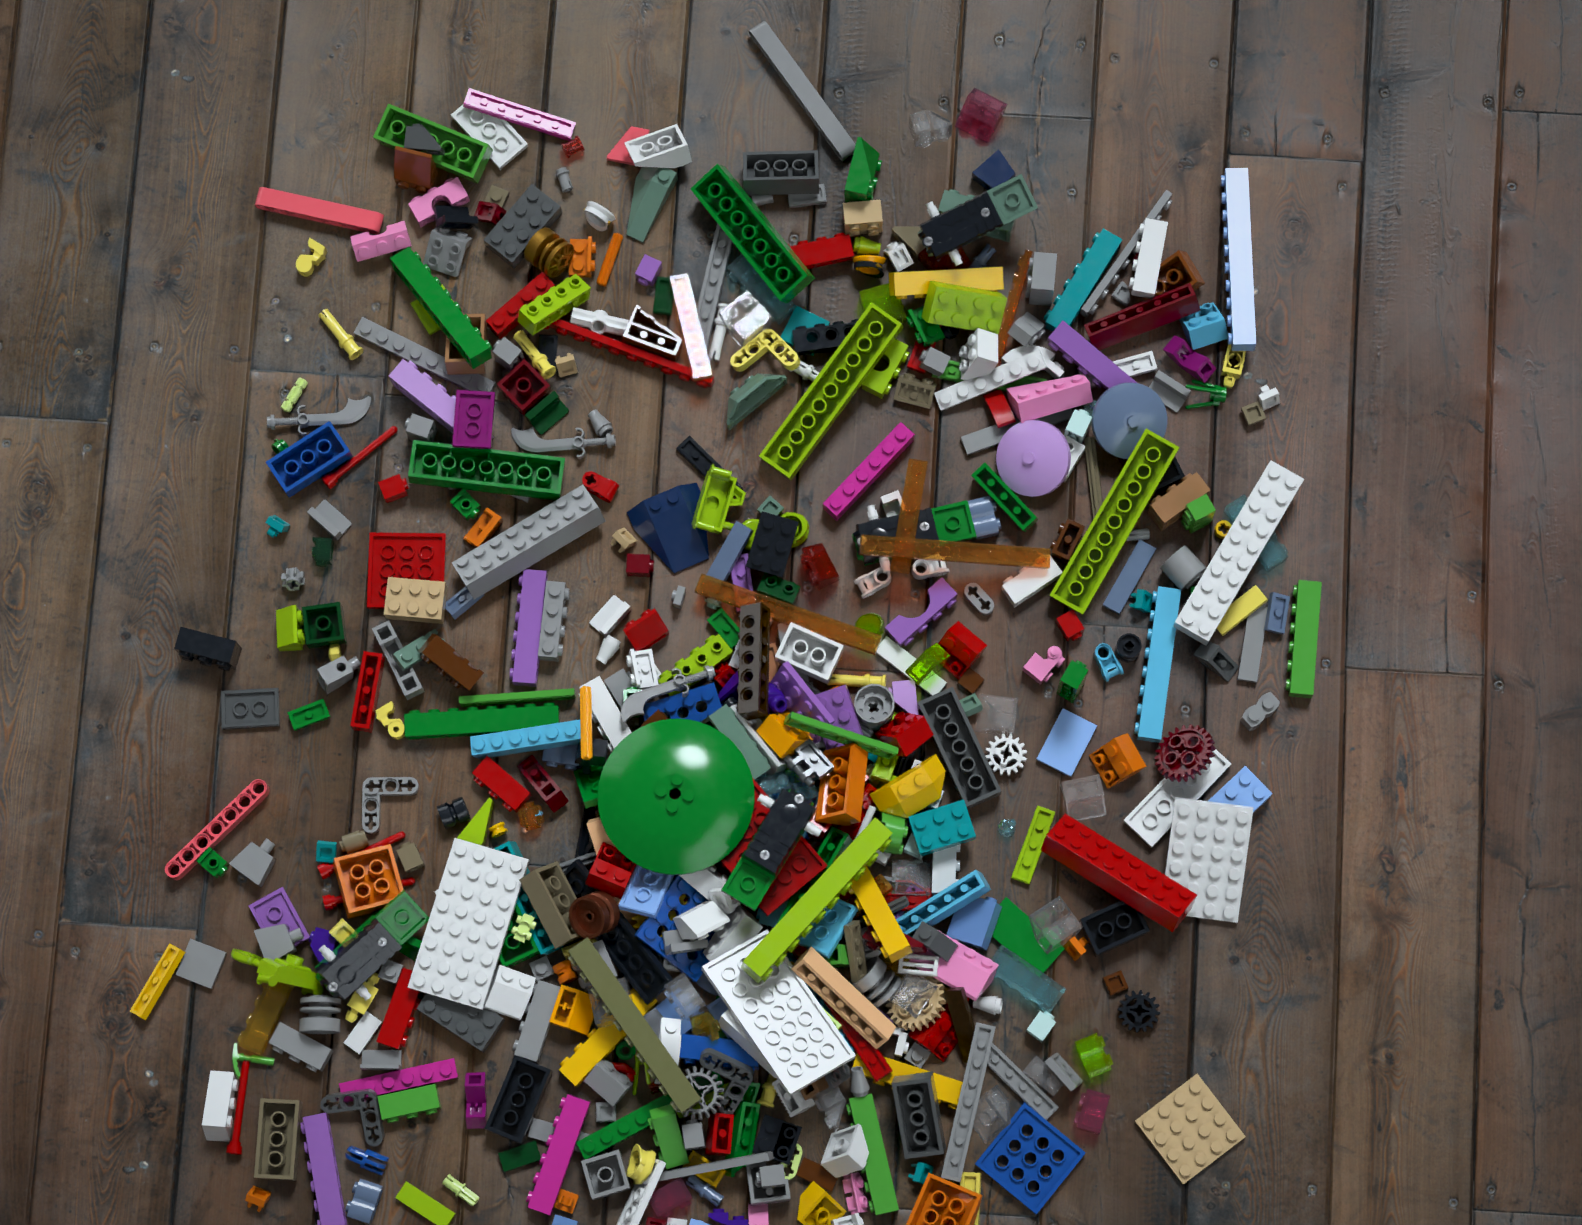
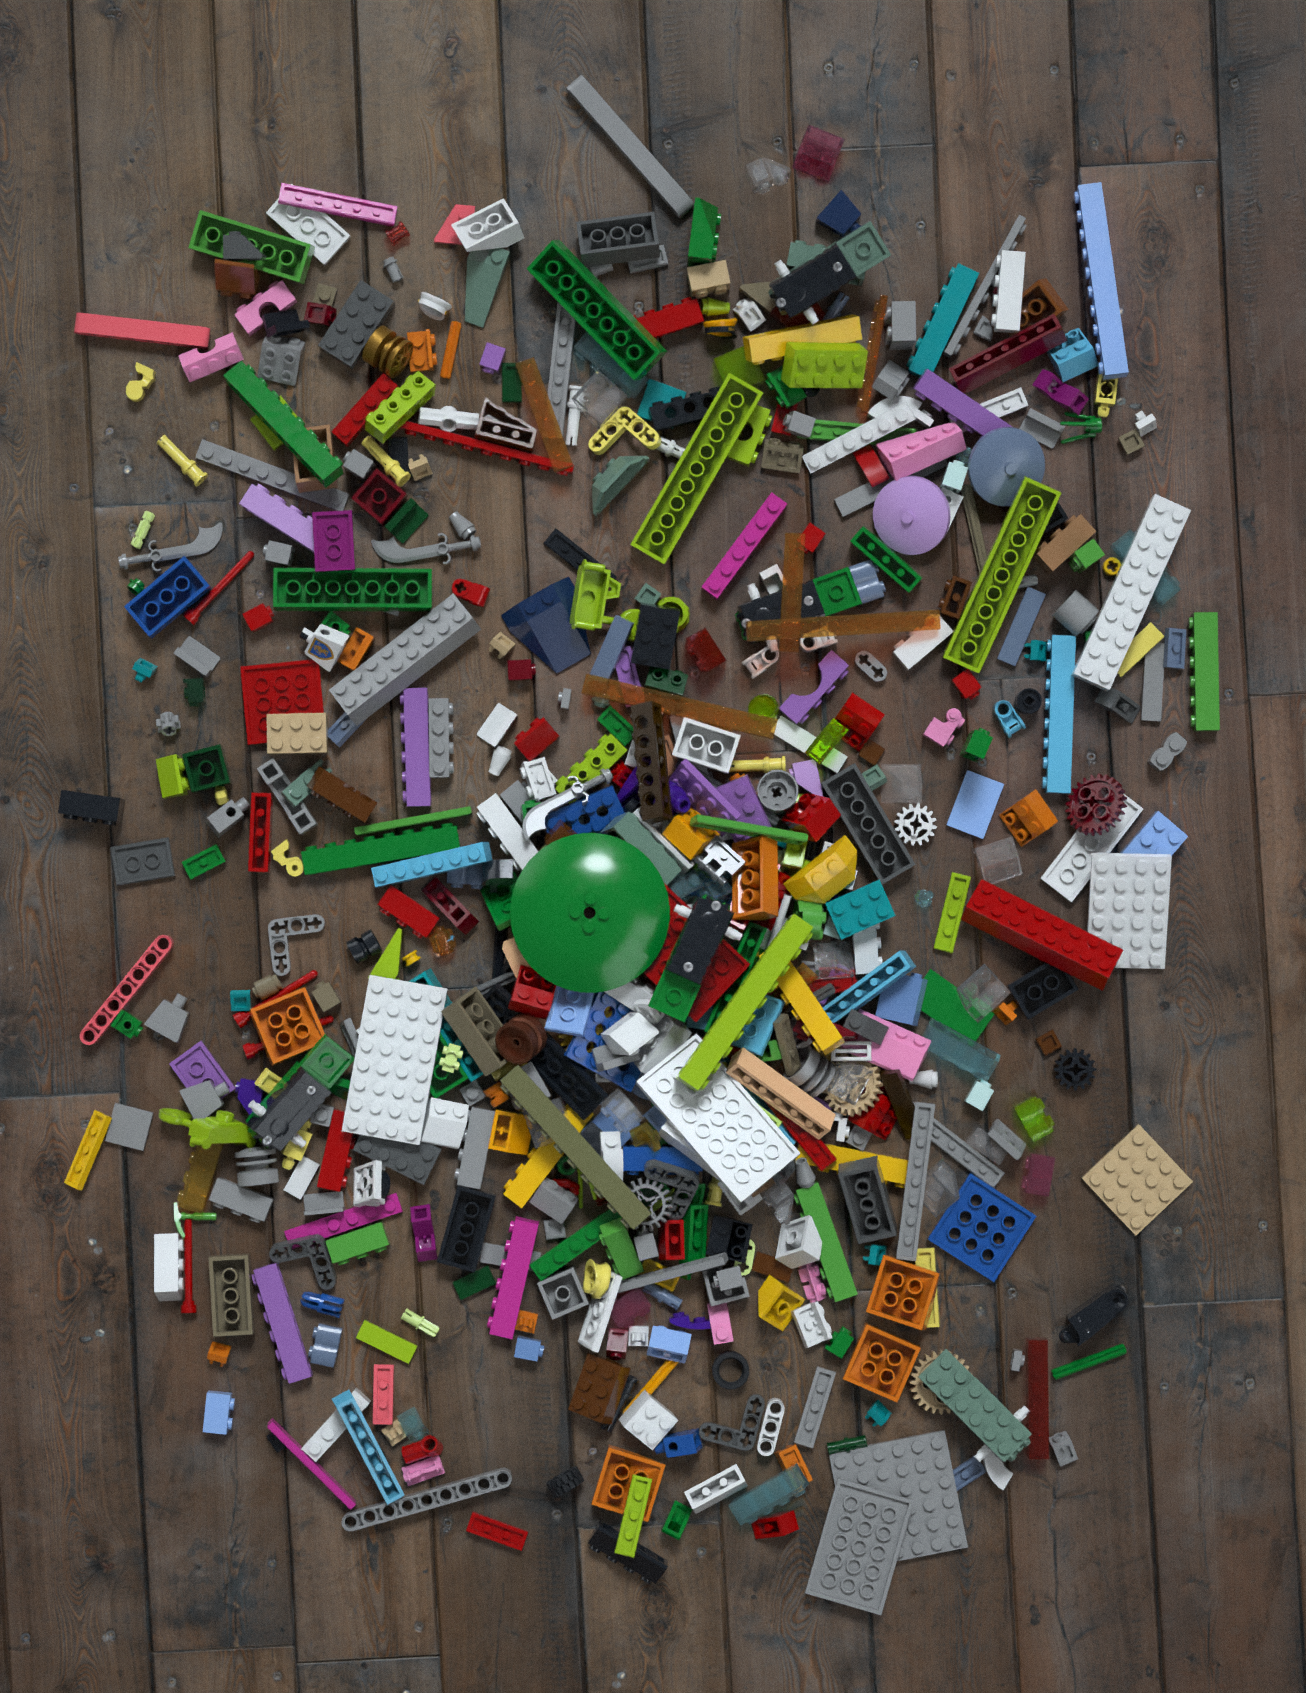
camera: 15 degrees left, 10 degrees up
(428, 895) = (350, 1034): none -> light grey tile
(429, 1045) = (370, 1184): none -> white piece
(453, 520) = (324, 645): none -> white torso
(586, 722) = (488, 845): light orange axle -> none
(935, 471) = (813, 537): none -> red brick
(979, 354) = (844, 412): white slope -> none

